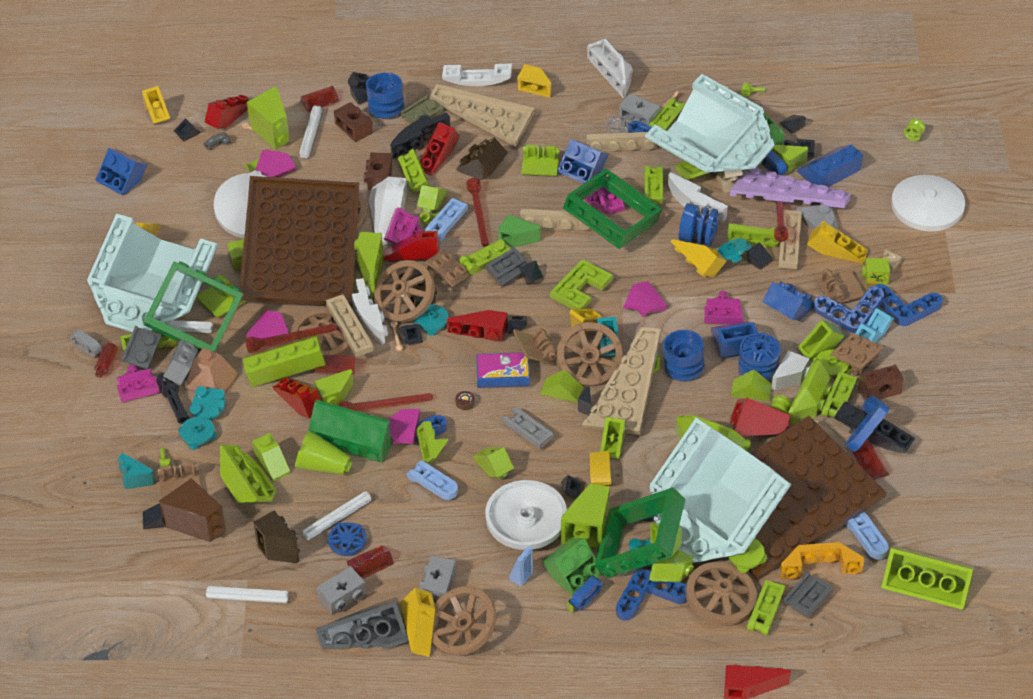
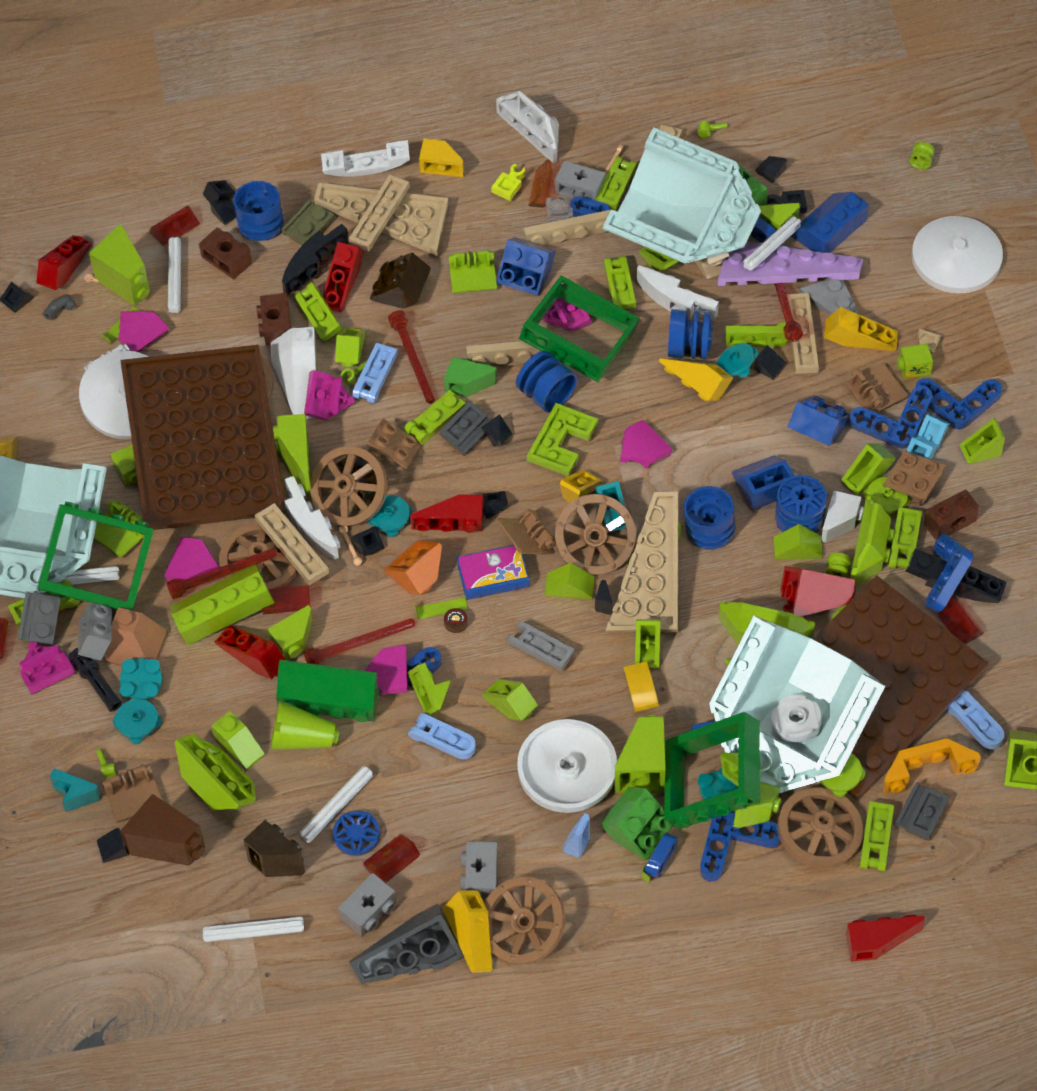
camera: 10 degrees left, 10 degrees up
(418, 246) = (348, 419): red slope -> none
(443, 358) = (416, 567): none -> orange slope
(454, 390) = (440, 608): none -> lime piece
(477, 109) = (379, 213): none -> tan plate
(572, 486) = (612, 716): black slope -> none
(577, 240) = (546, 381): none -> blue wheel
(583, 106) = (508, 184): none -> neon yellow plate
(609, 109) = (541, 185): none -> clear orange slope
(718, 516) = (796, 731): none -> white plate
(722, 310) = (741, 444): dark pink slope -> none
(779, 171) = (771, 243): none -> white axle
(919, 337) = (984, 443): none -> lime slope

